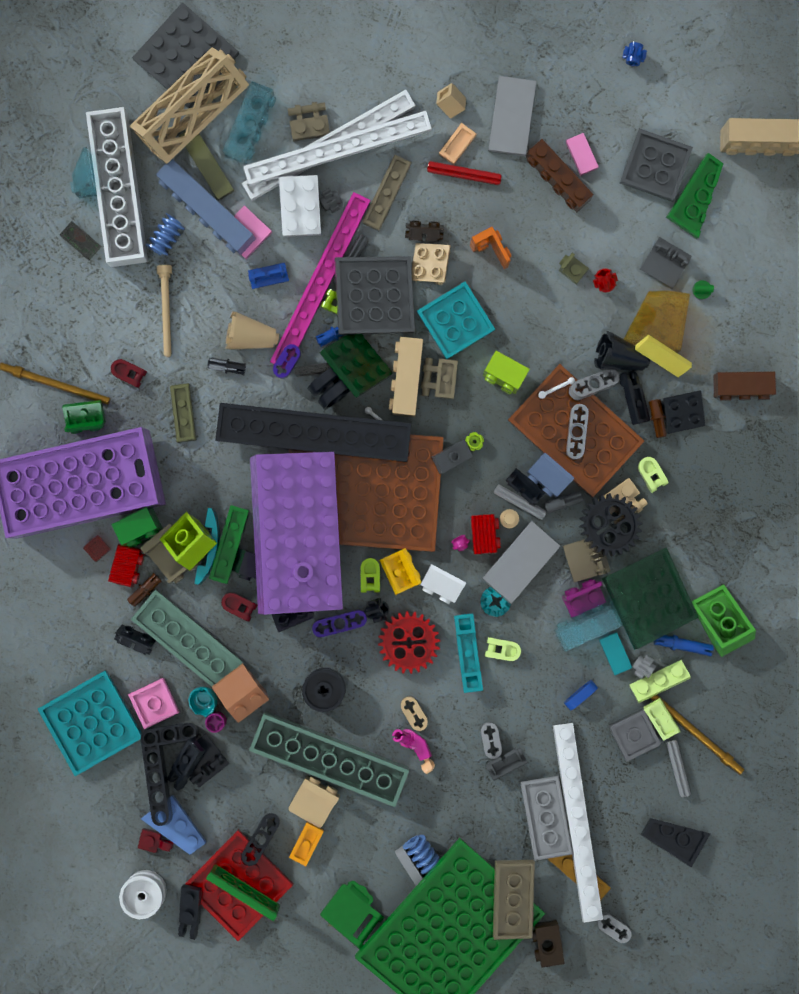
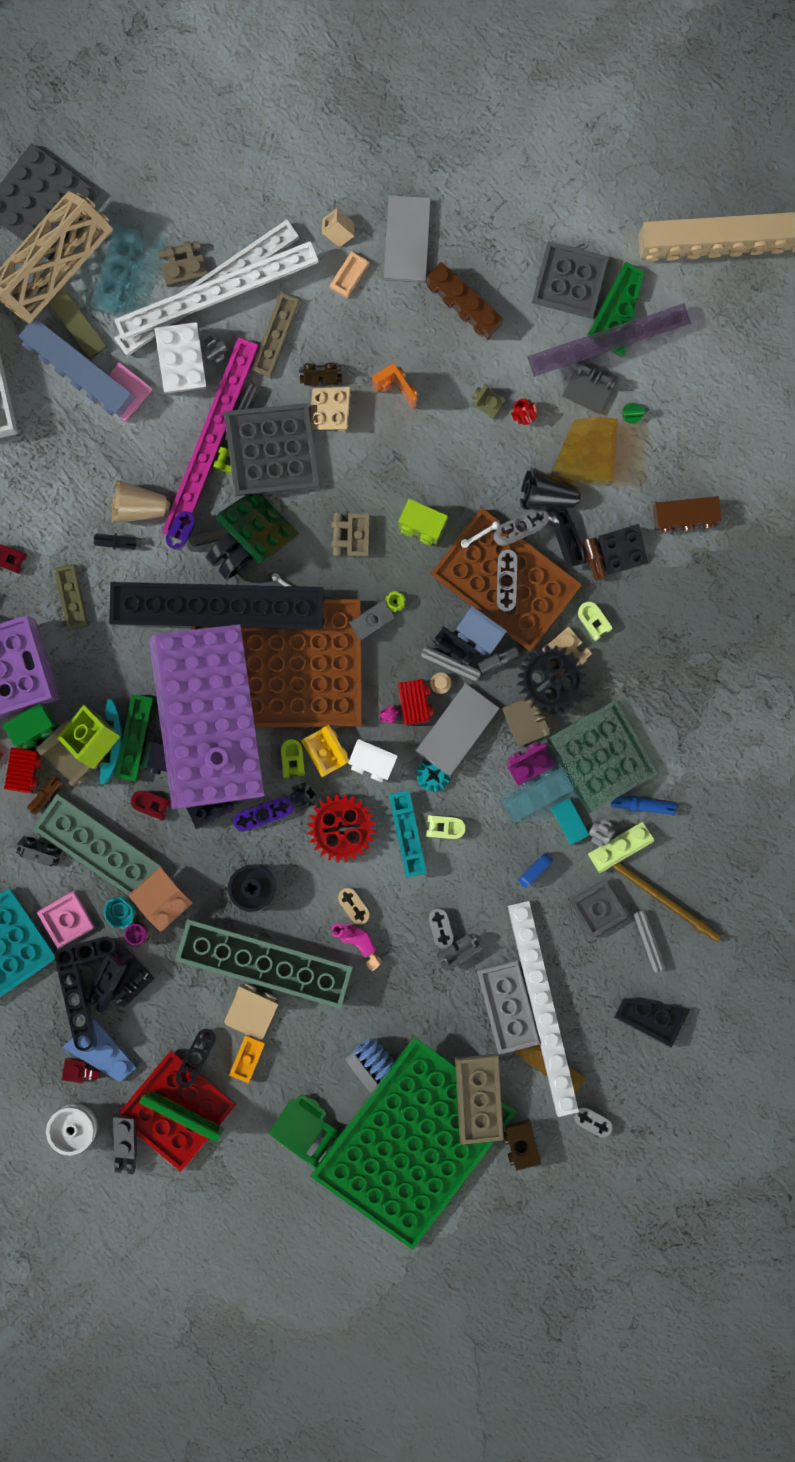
camera: 10 degrees left, 0 degrees up
(164, 273) = (37, 445): tan piece -> none
(166, 235) = (34, 403): medium blue piece -> none
(268, 275) = (152, 437): blue hinge -> none
(328, 336) = (224, 499): blue axle -> none
(407, 376) = (315, 532): tan brick -> none
(455, 320) = (363, 469): teal plate -> none
(464, 173) = (359, 306): red axle -> none
(581, 154) = (487, 274): bright pink tile -> none
(634, 54) = (536, 159): blue gear -> none
(661, 719) = (626, 888): yellowish green plate -> none
(663, 356) = (594, 489): light yellow tile -> none
(687, 222) = (609, 340): none -> clear purple plate
(723, 620) = (685, 774): bright green slope -> none

